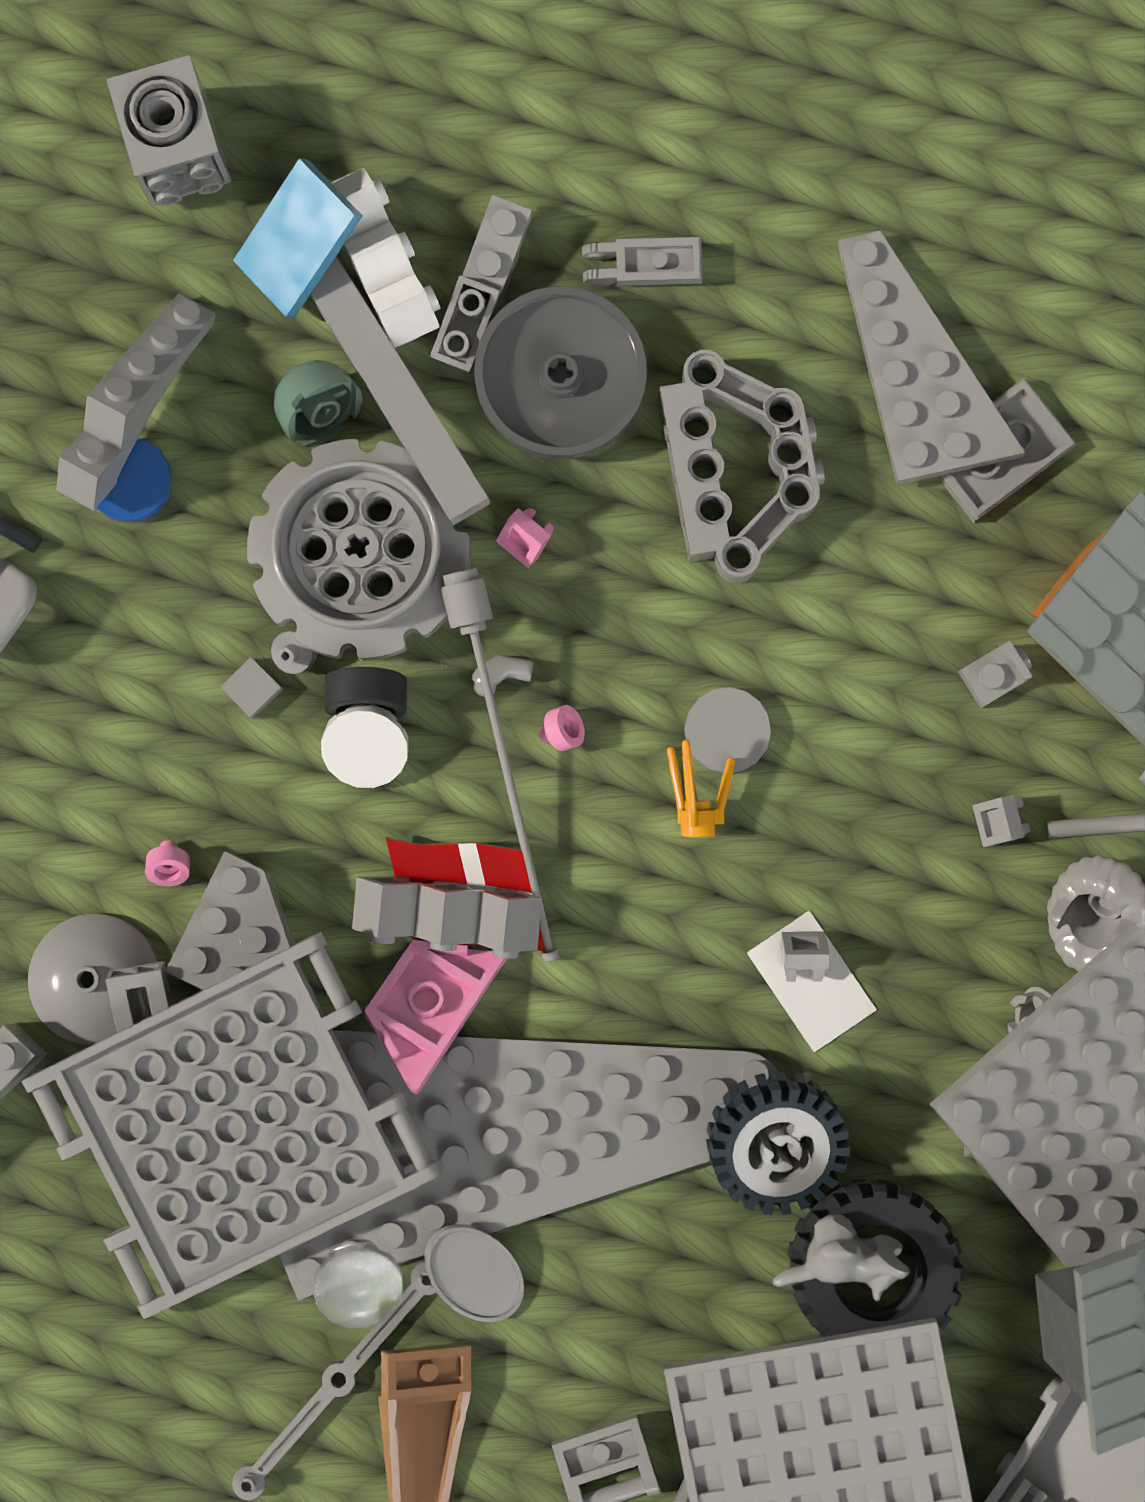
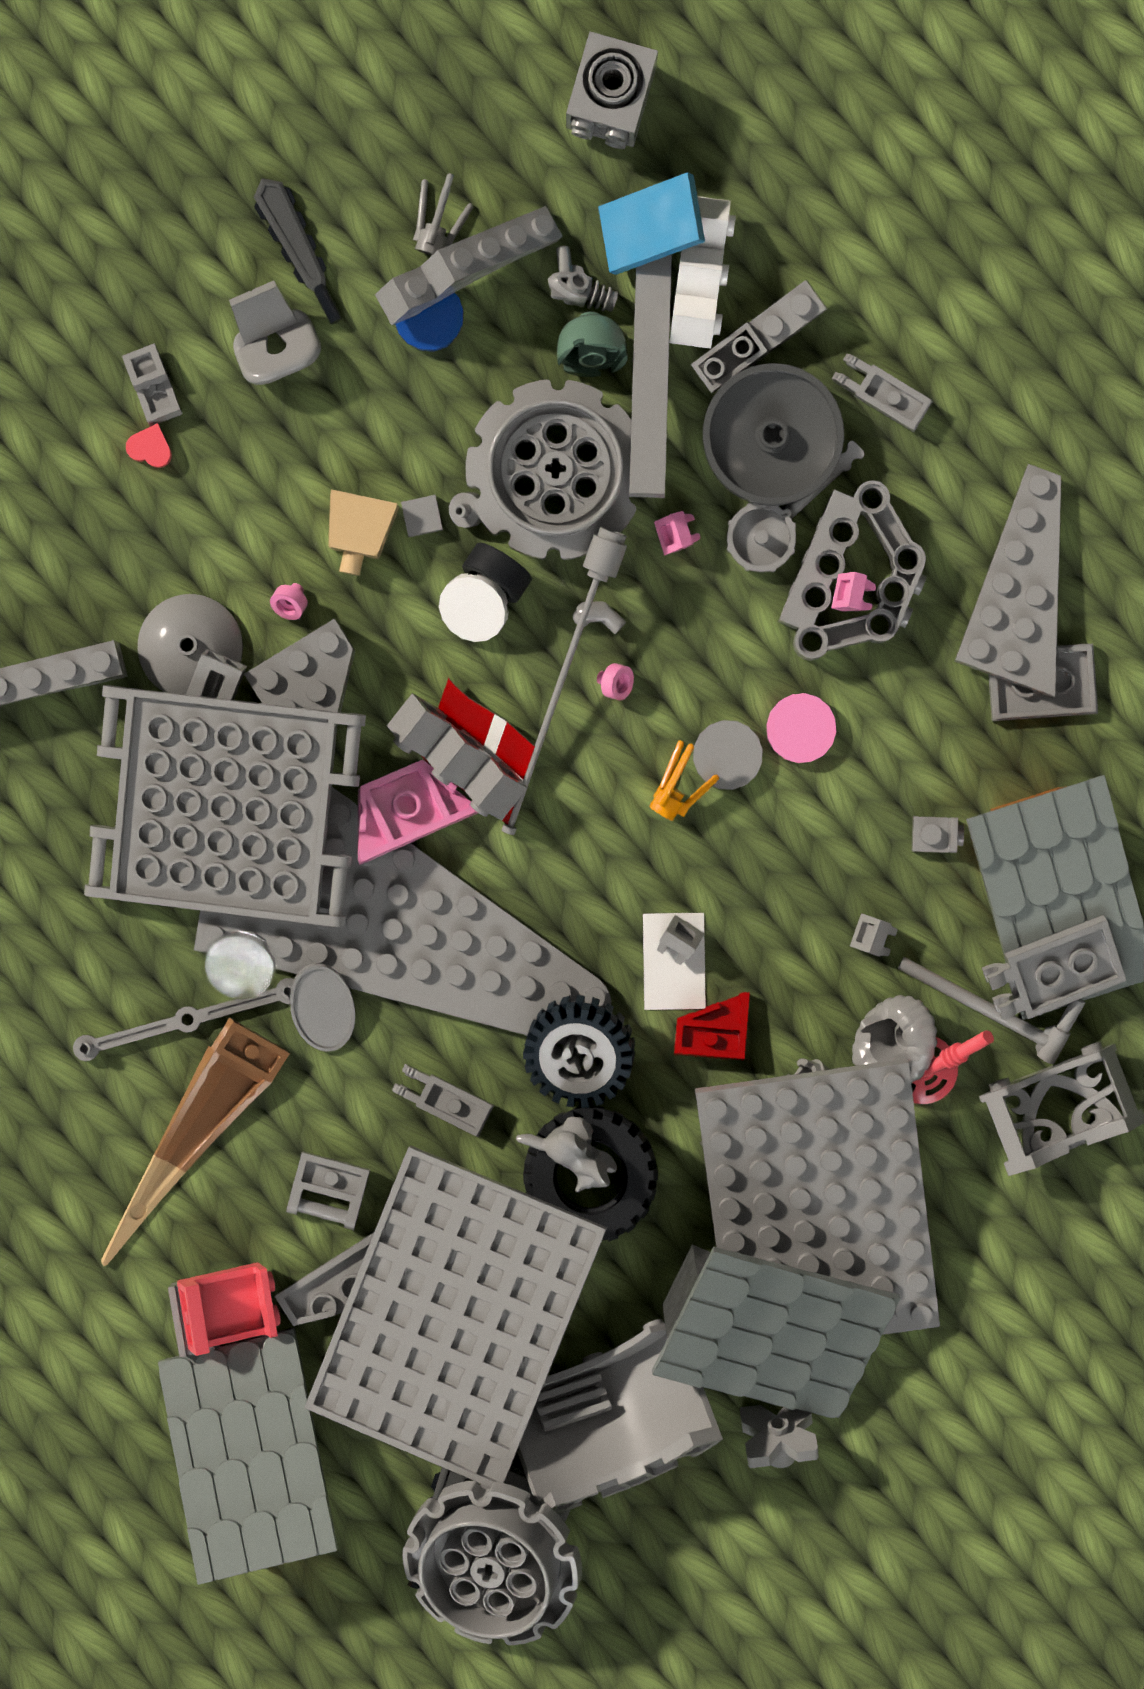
camera: 25 degrees right, 5 degrees up
(74, 400) = (433, 236): none -> light grey plant
(192, 741) = (359, 528): none -> tan torso
(260, 354) = (576, 287): none -> light grey piece
(620, 482) = (764, 535): none -> light grey piece
(670, 1287) = (446, 1101): none -> light grey hinge
(746, 477) = (850, 592): none -> bright pink tile
(784, 654) = (801, 728): none -> bright pink tile
(903, 1026) = (715, 1031): none -> red wing

